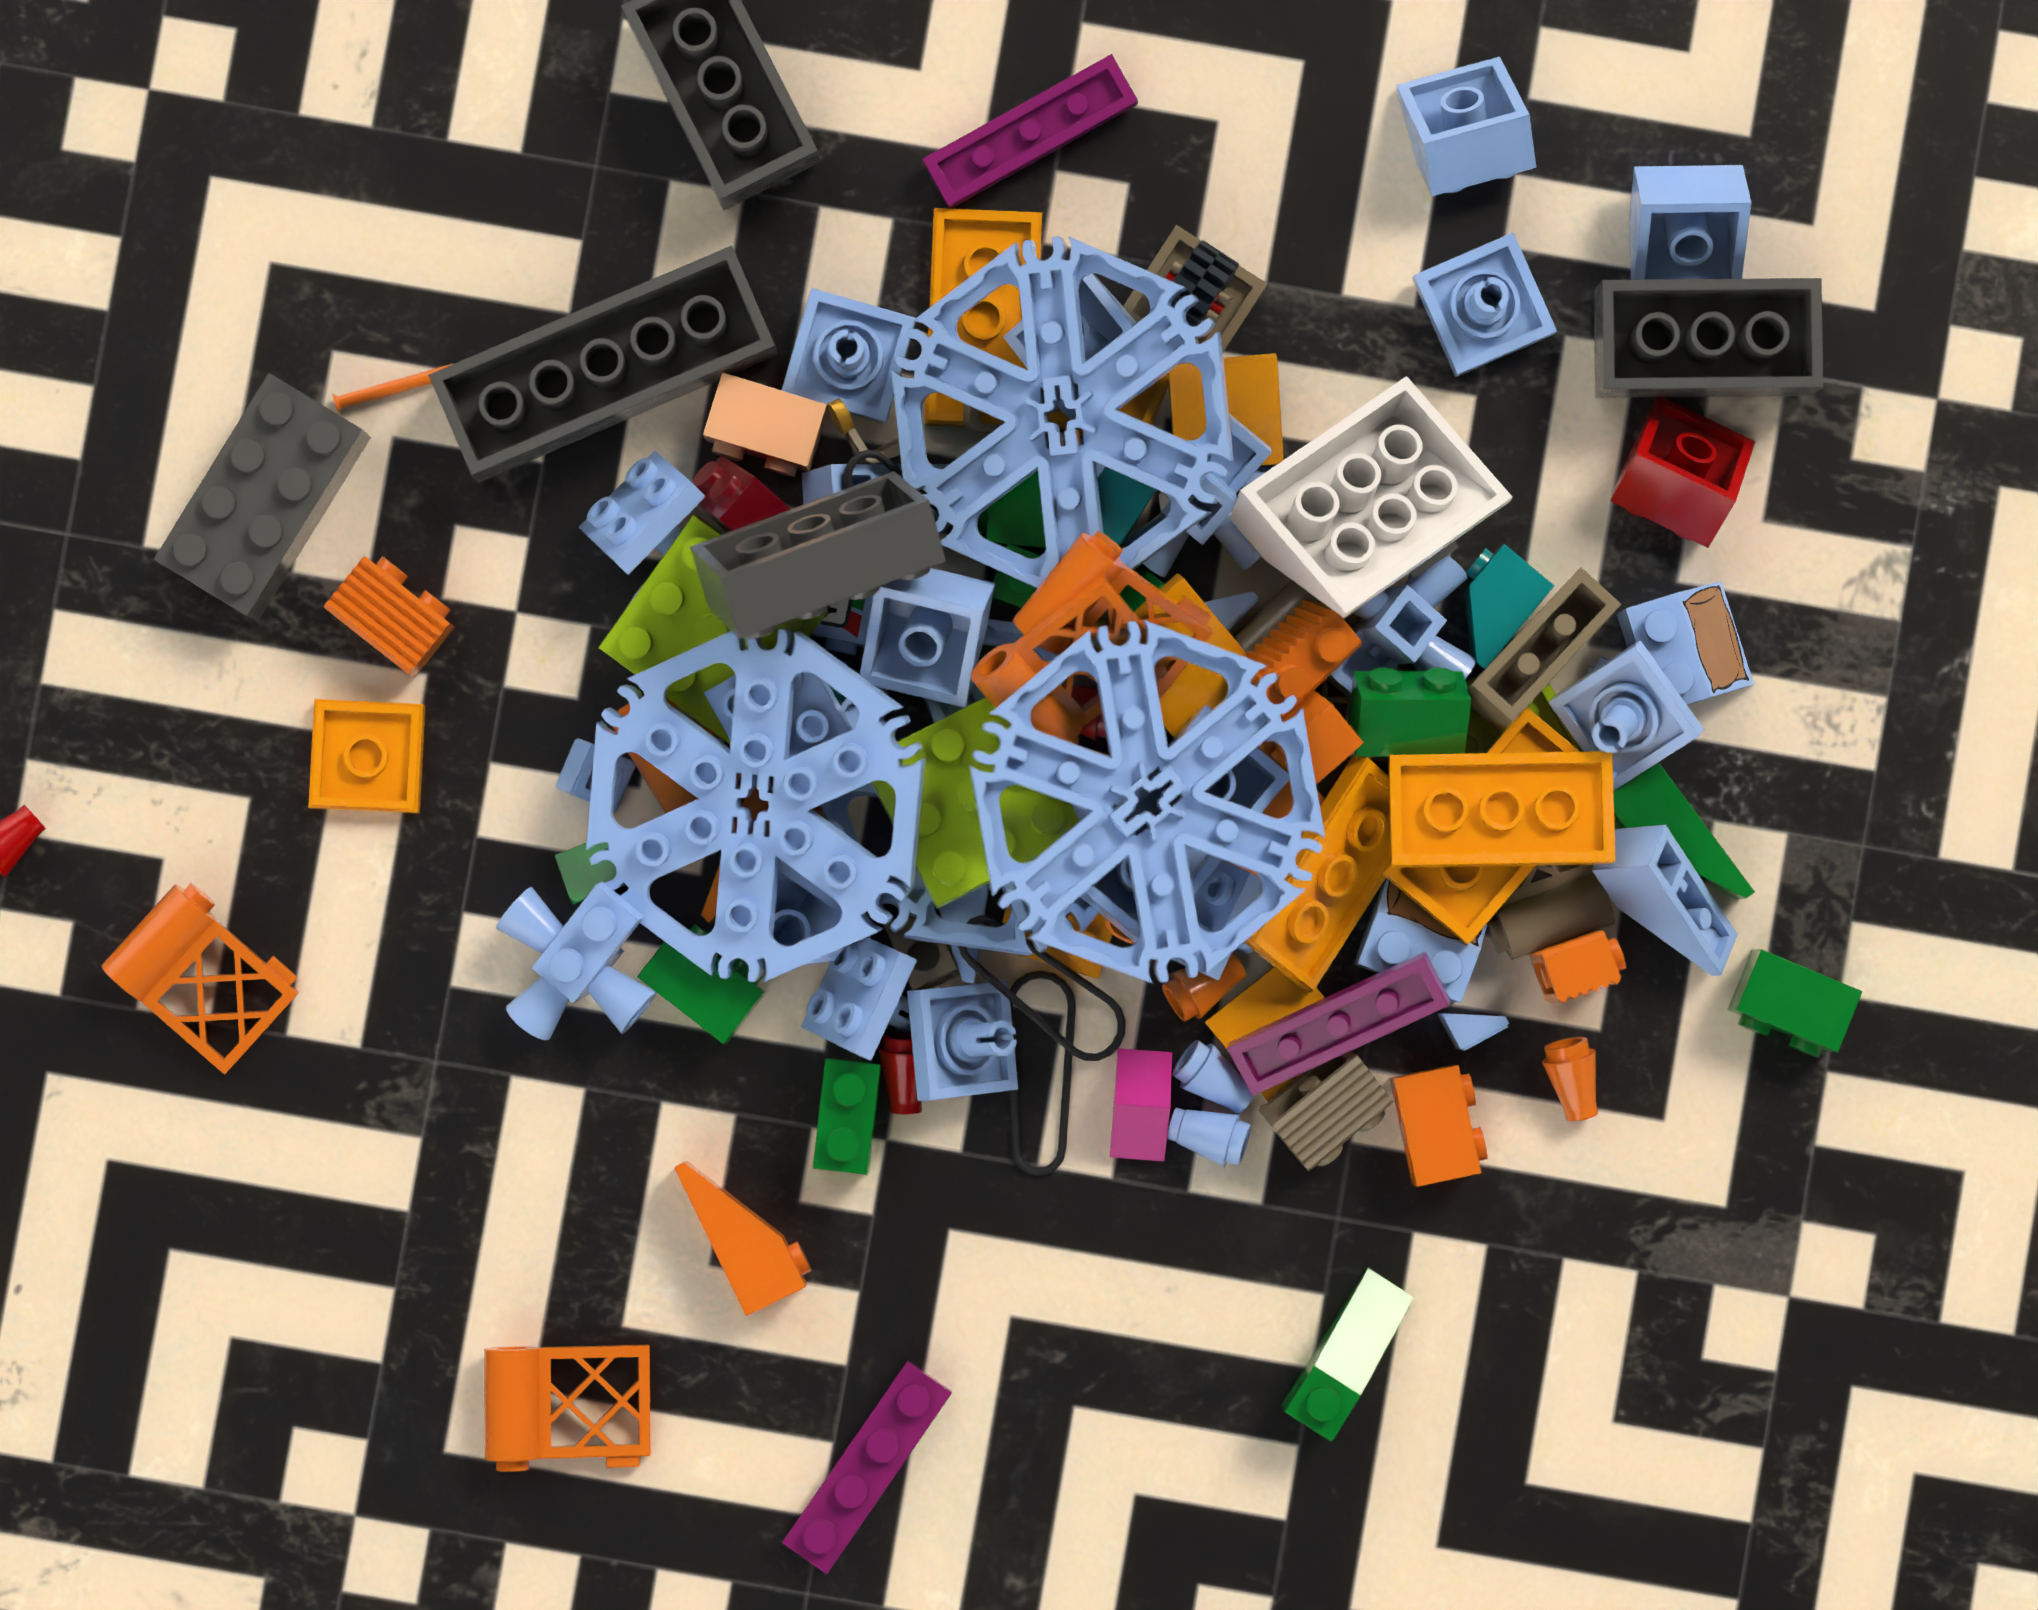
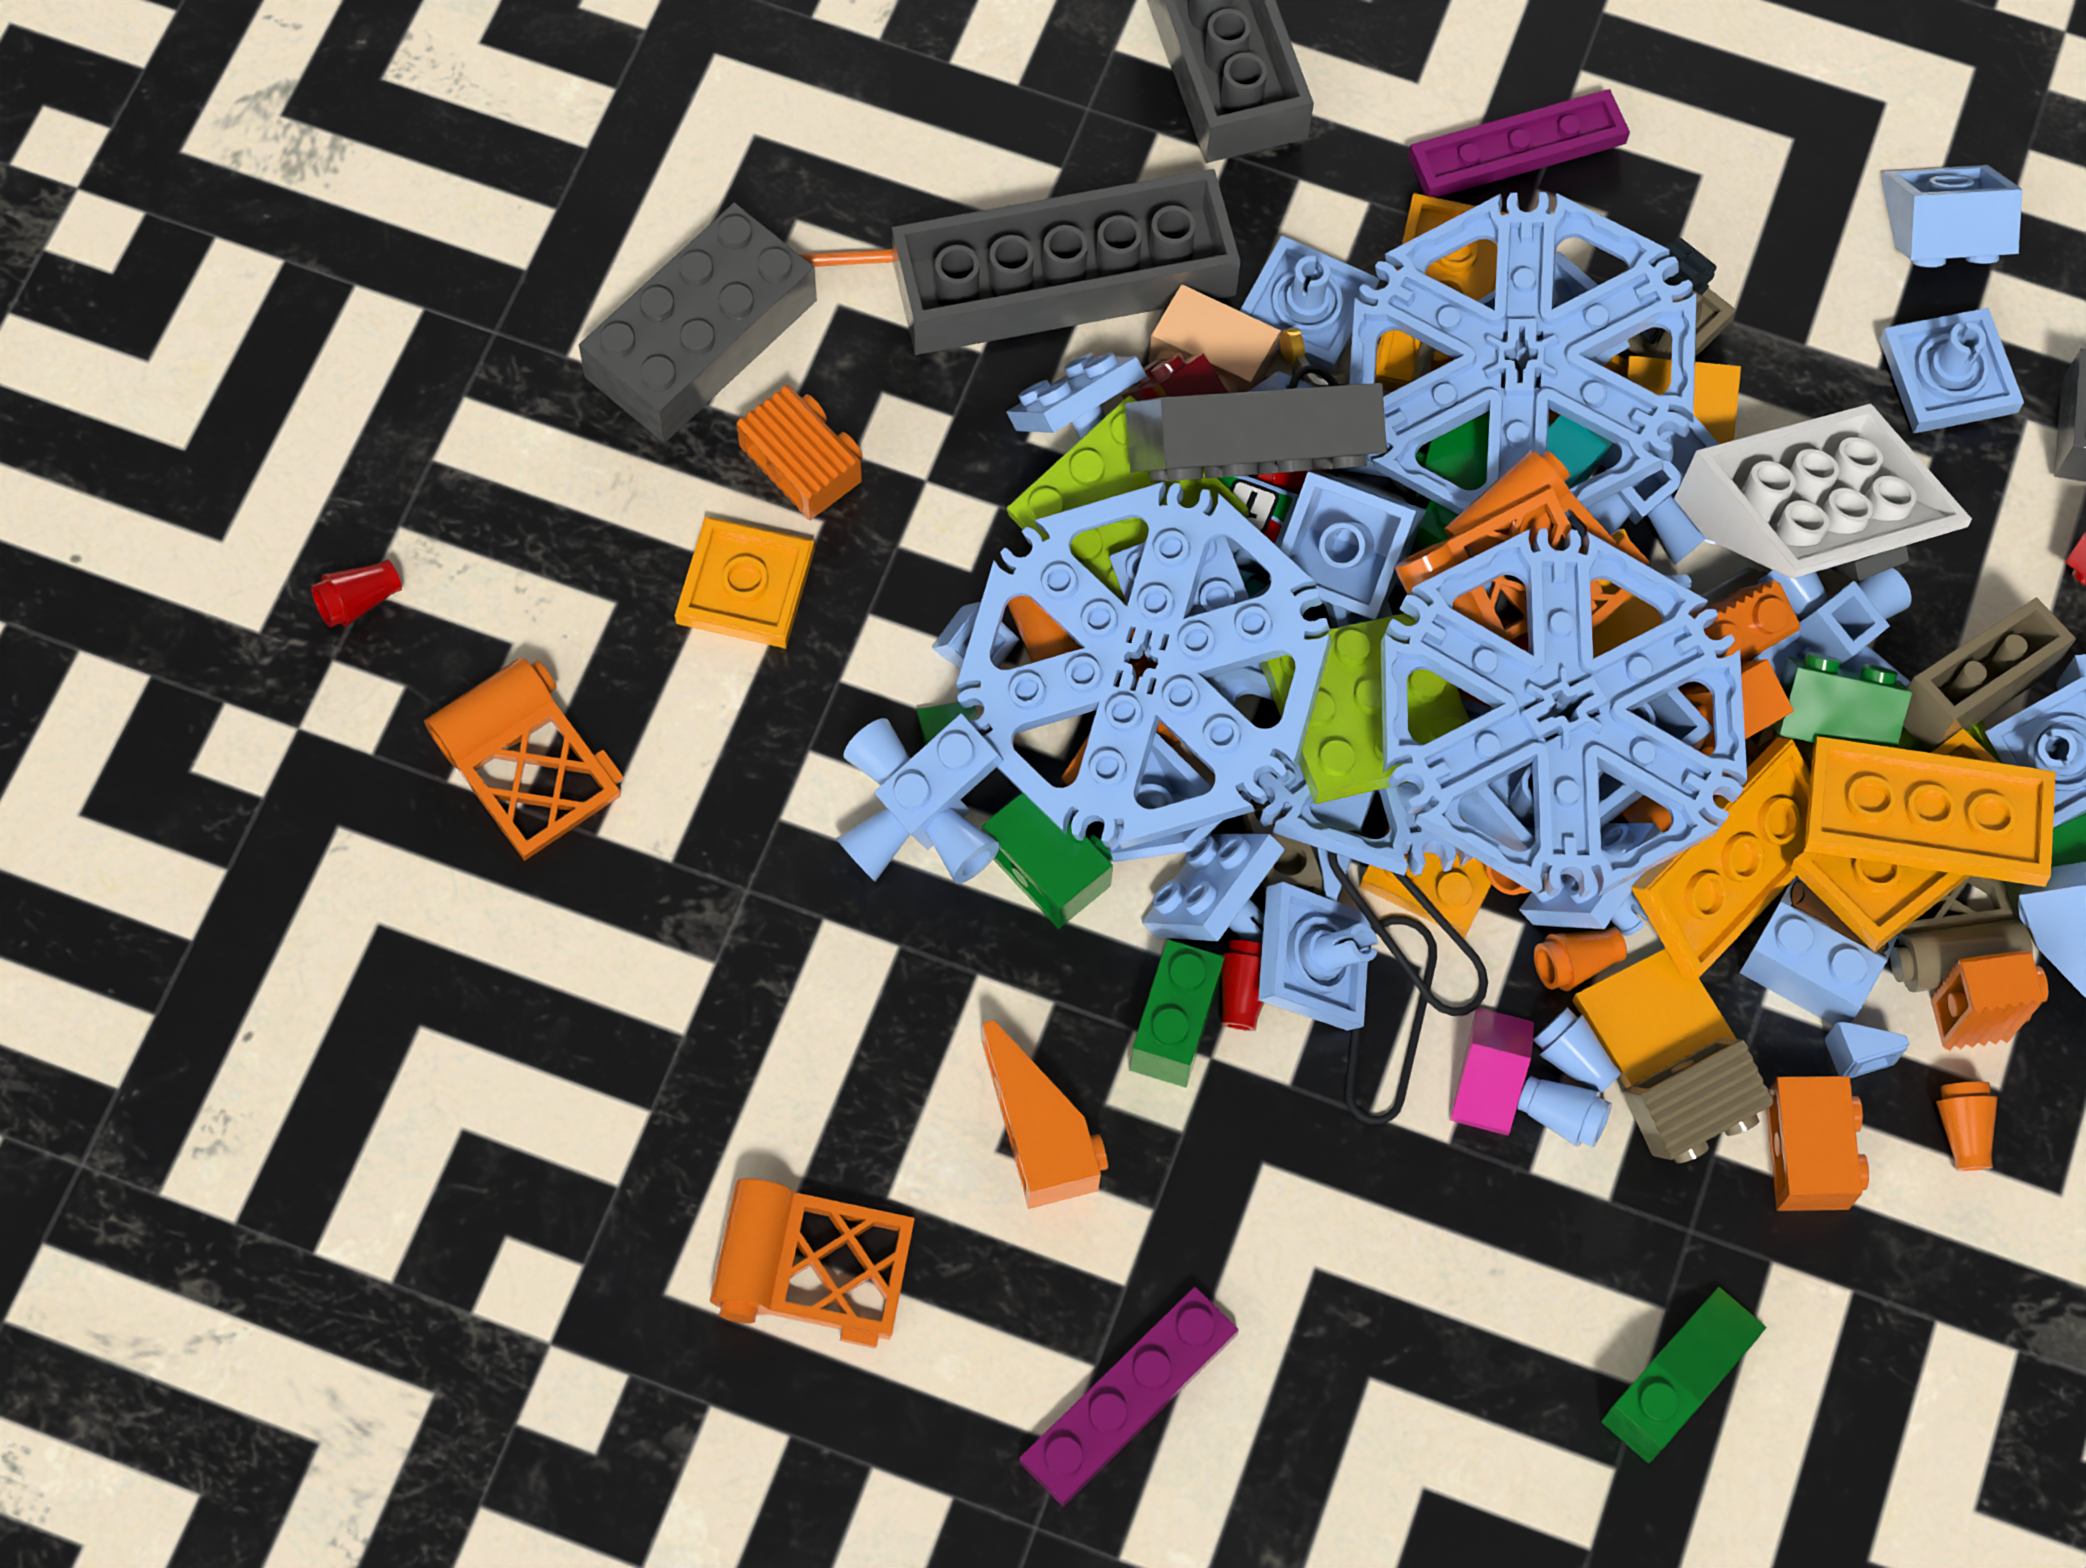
camera: 15 degrees right, 20 degrees down
(1339, 1023) = (1726, 1004): magenta plate -> none
(1499, 601) = (1939, 625): teal slope -> none

